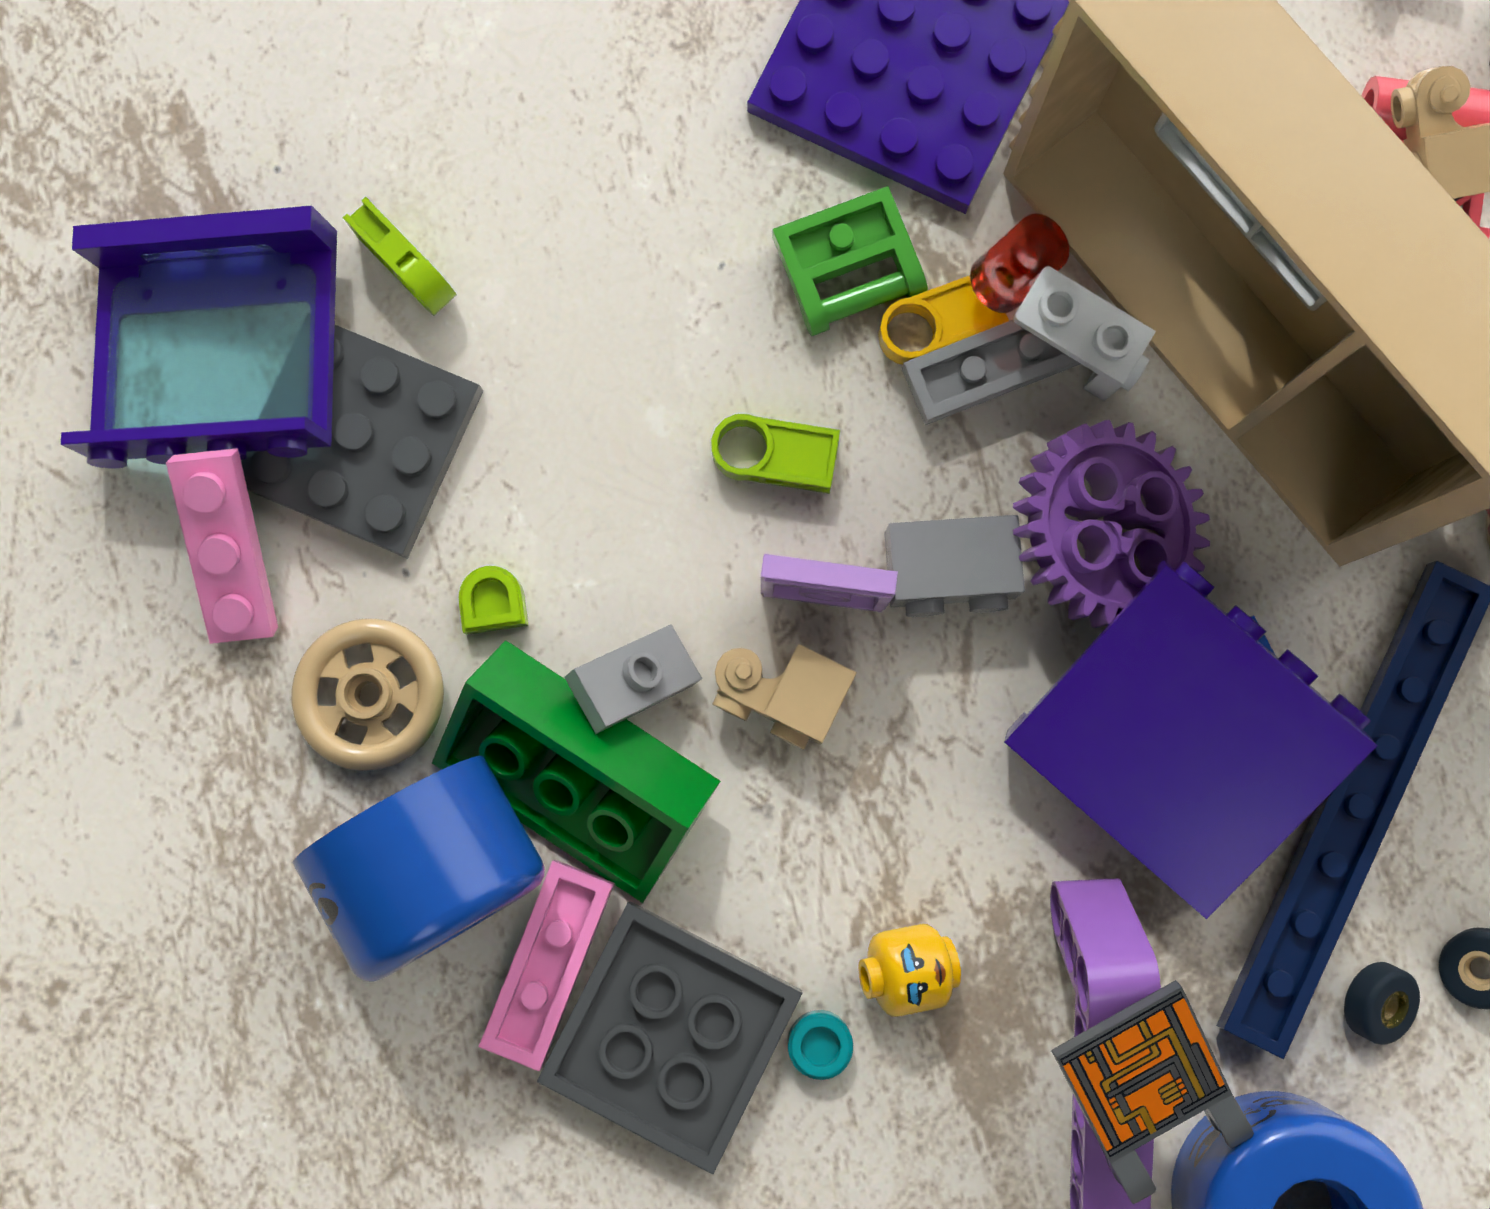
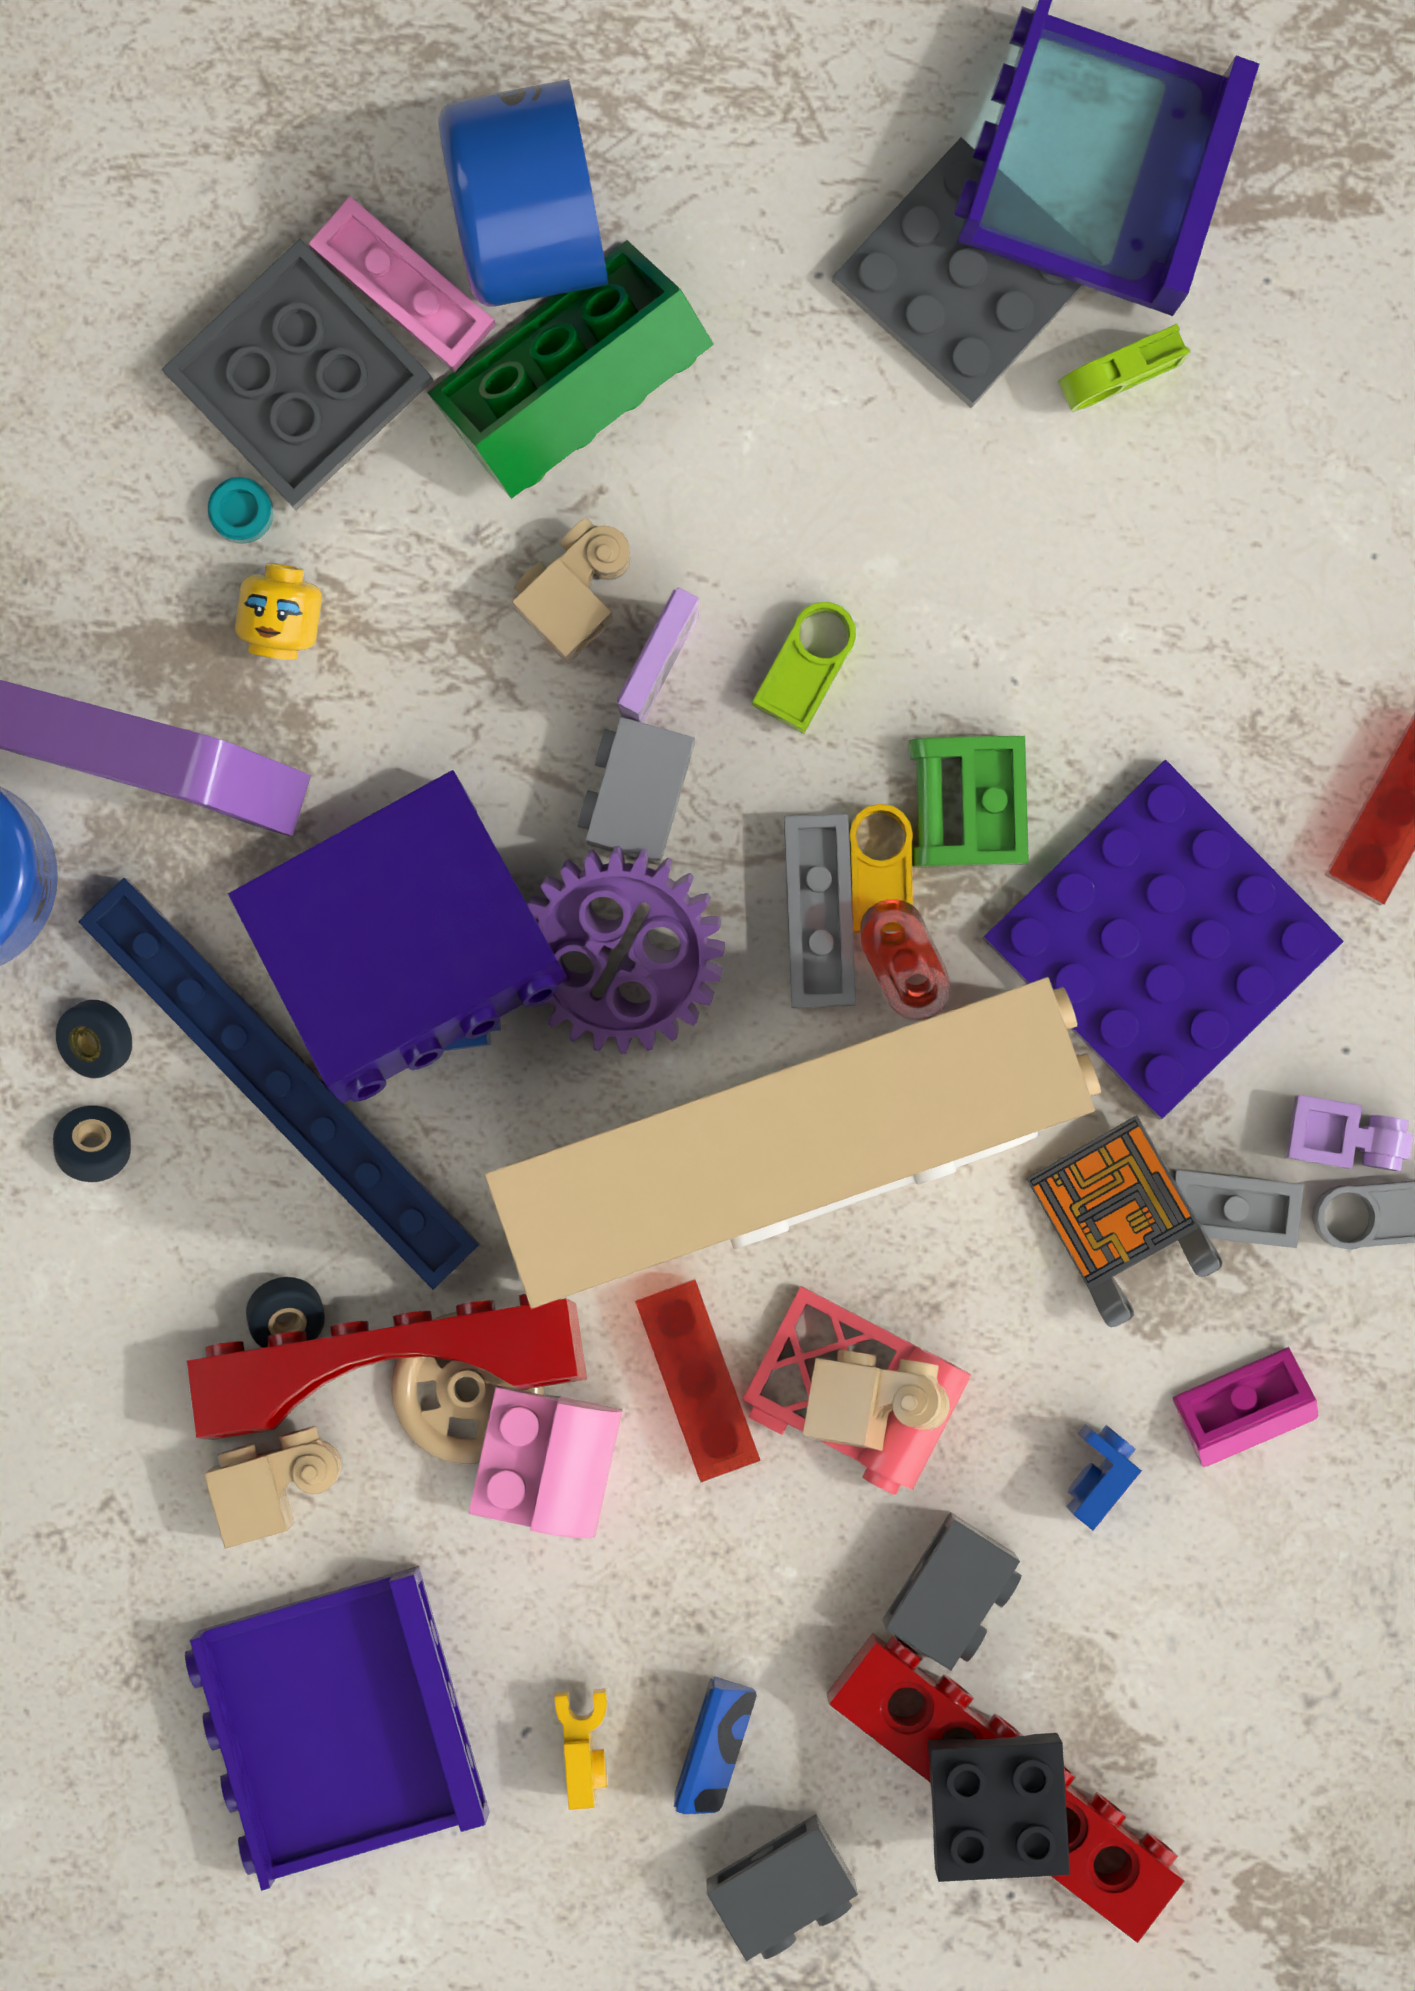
camera: 100 degrees right, 5 degrees up
(222, 545) = (895, 109): bright pink plate -> none
(328, 660) = (699, 149): tan plate -> none
(491, 601) = (760, 347): lime tile -> none
(632, 678) = (635, 451): light grey plate -> none
(1087, 331) = (813, 989): white bracket -> none
(1144, 1078) = (114, 762): flag -> none

